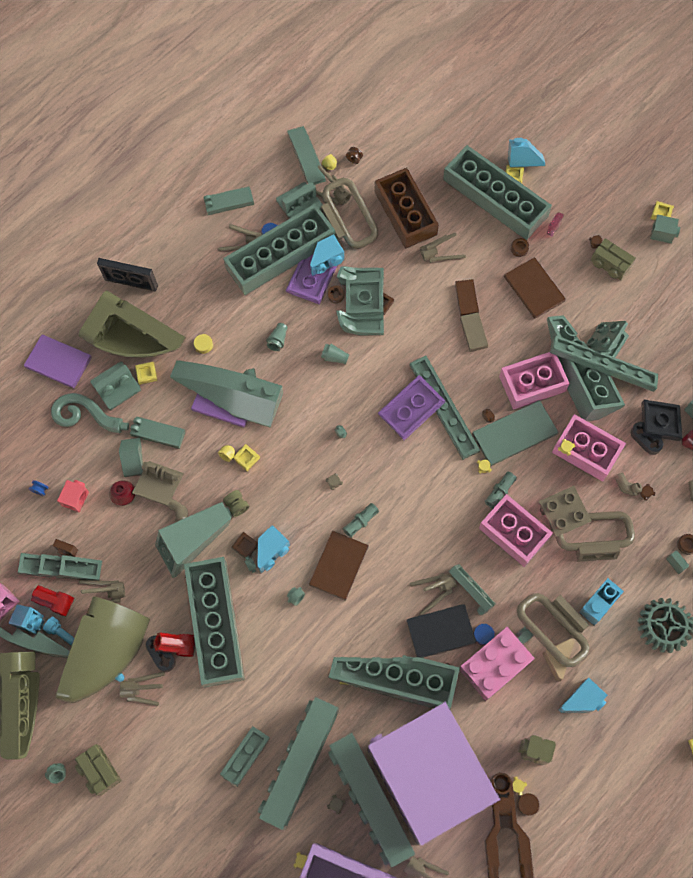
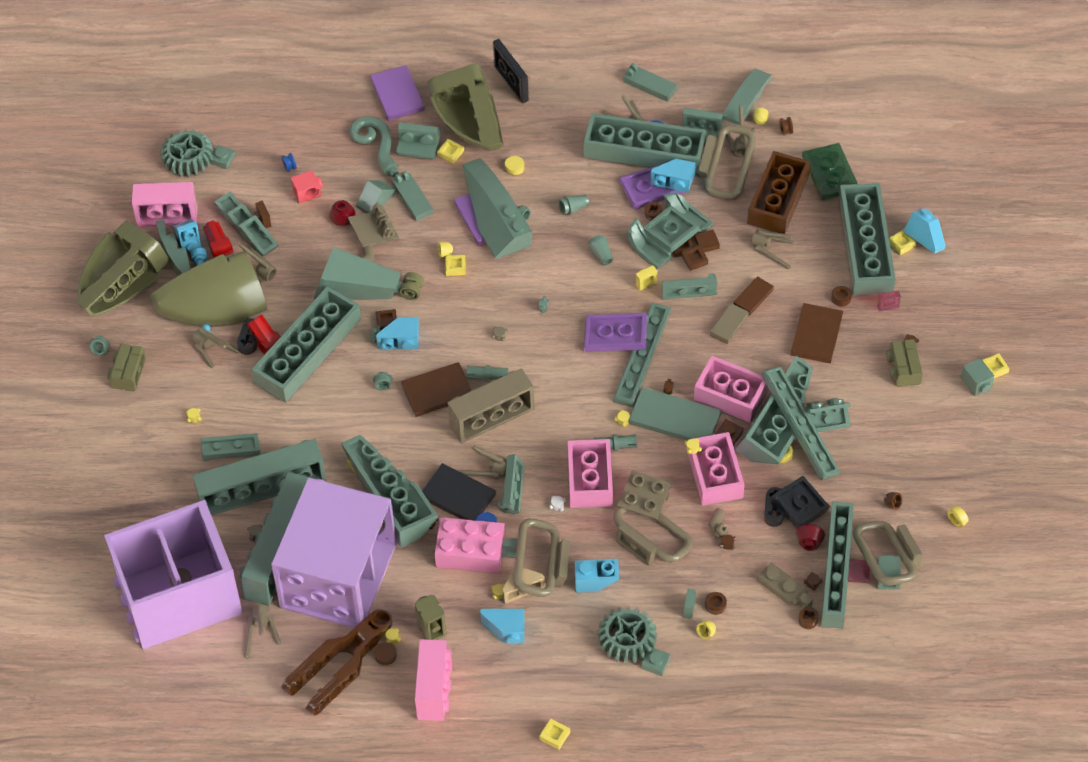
camera: 45 degrees right, 15 degrees down
(188, 757) = (193, 415): none -> light yellow piece
(386, 348) = (646, 278): none -> light yellow plate
(394, 284) = (707, 240): none -> reddish brown tile
(397, 544) = (491, 405): none -> dark tan brick
(401, 304) = (694, 258): none -> reddish brown plate
(422, 163) = (829, 170): none -> clear green plate
(422, 331) = (689, 287): none -> sand green hinge
(512, 572) = (557, 503): none -> white piece
(548, 677) = (497, 591): none -> light yellow piece
(560, 412) = (734, 430): none -> reddish brown plate
(592, 796) = (433, 680): none -> bright pink brick

